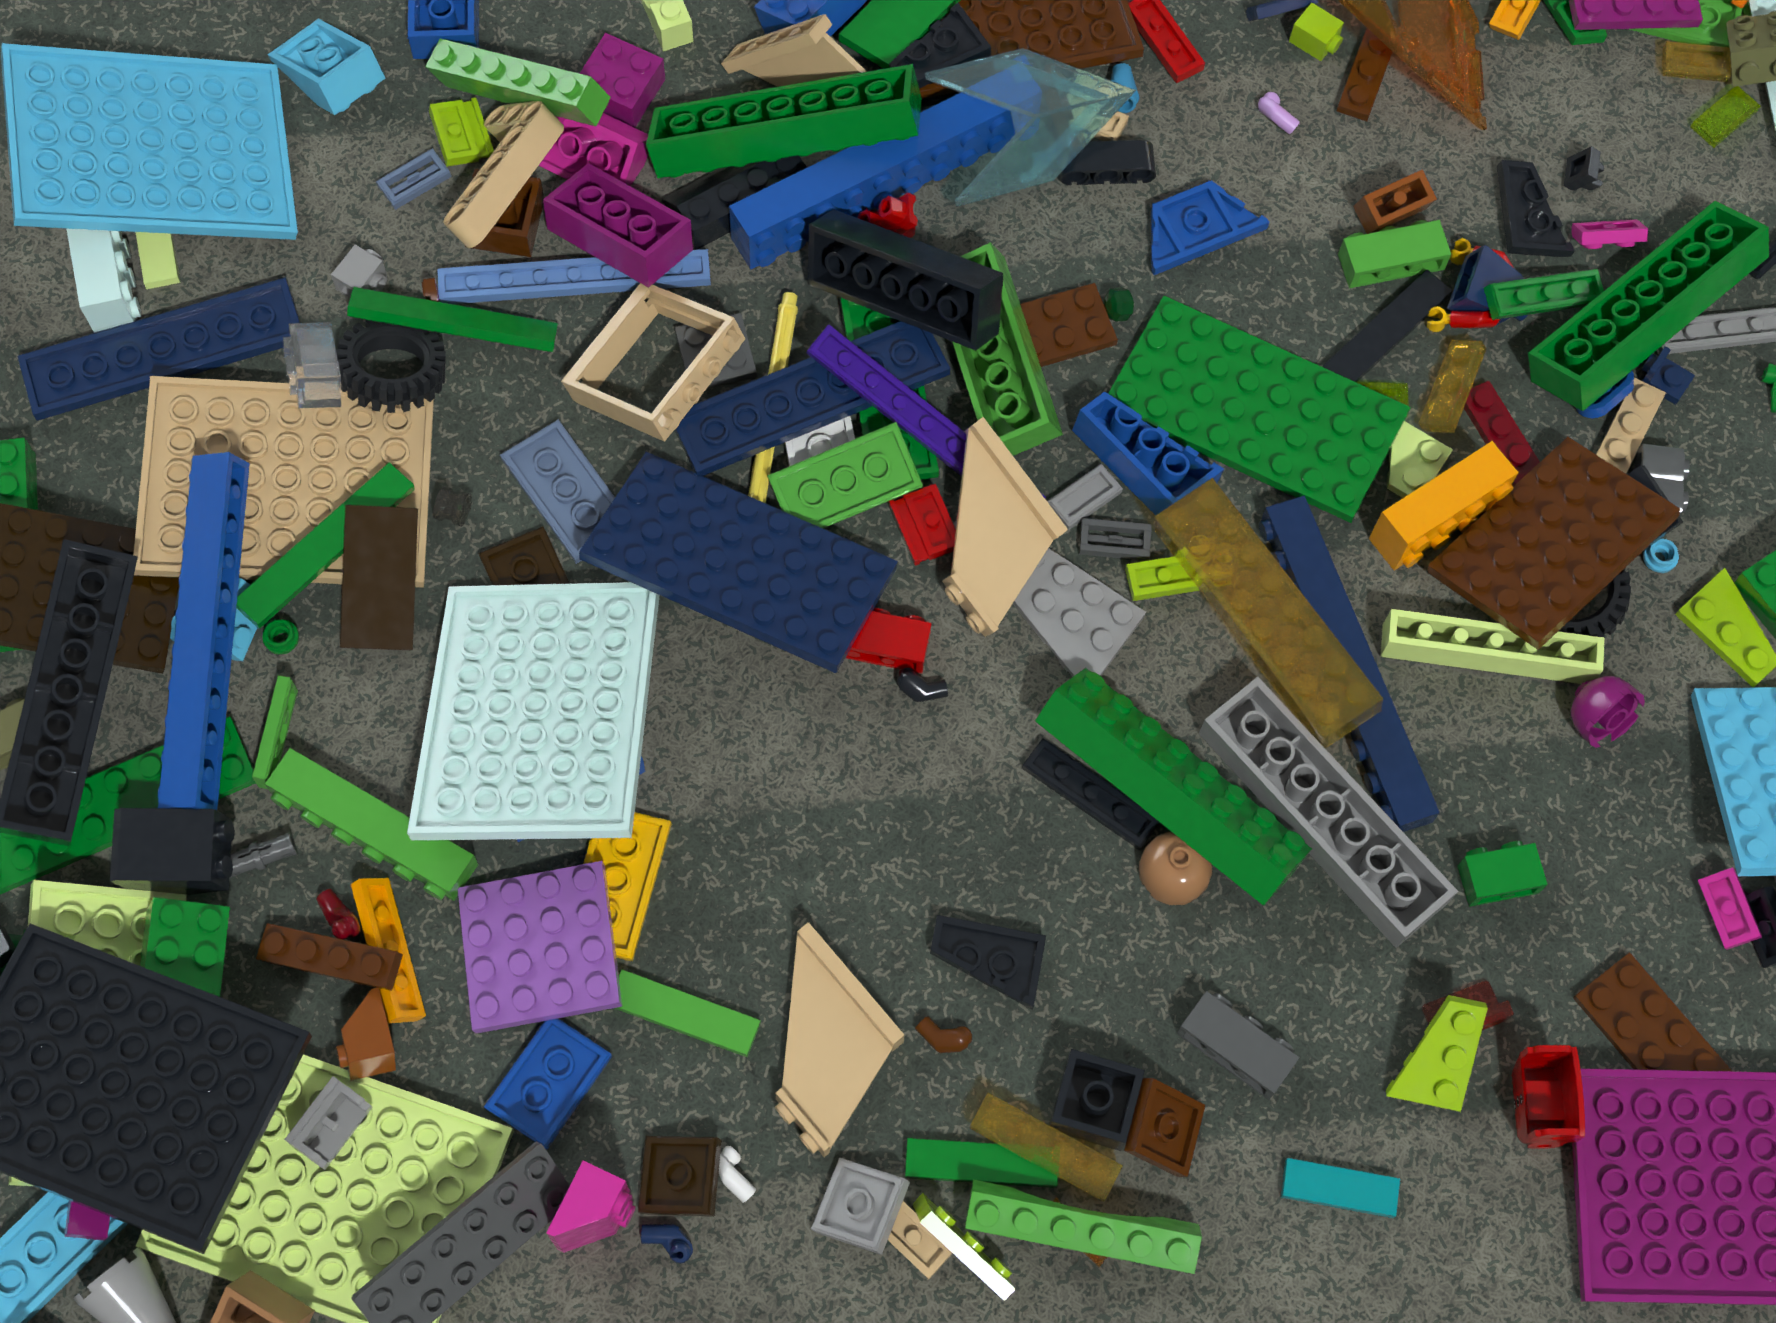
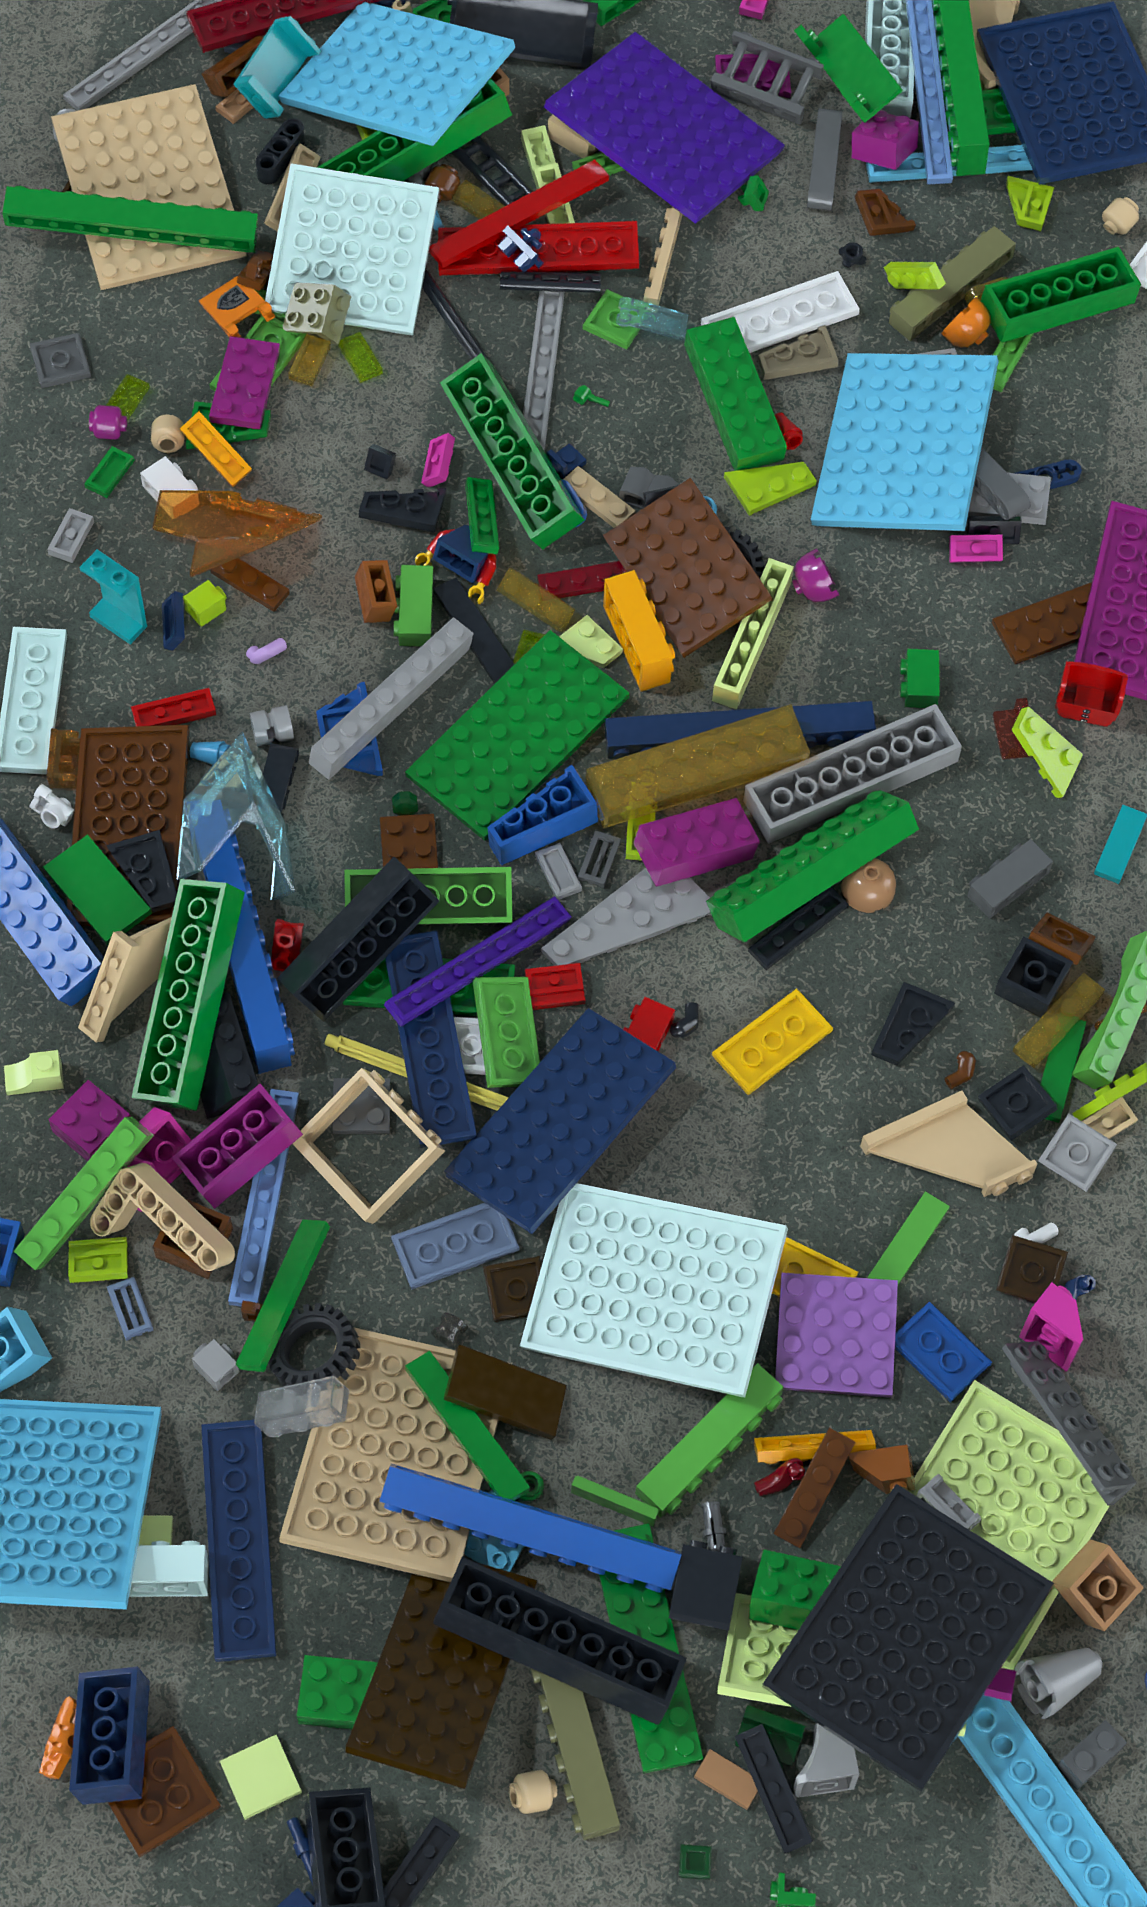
camera: 75 degrees left, 5 degrees down
(910, 1113) = (1017, 1103): none -> black plate
(923, 794) = (772, 1041): none -> yellow tile
(999, 530) = (582, 929): tan piece -> none
(1163, 638) = (696, 842): none -> magenta brick
(1175, 138) = (271, 726): none -> light grey wheel
(1251, 250) = (390, 698): none -> light grey brick

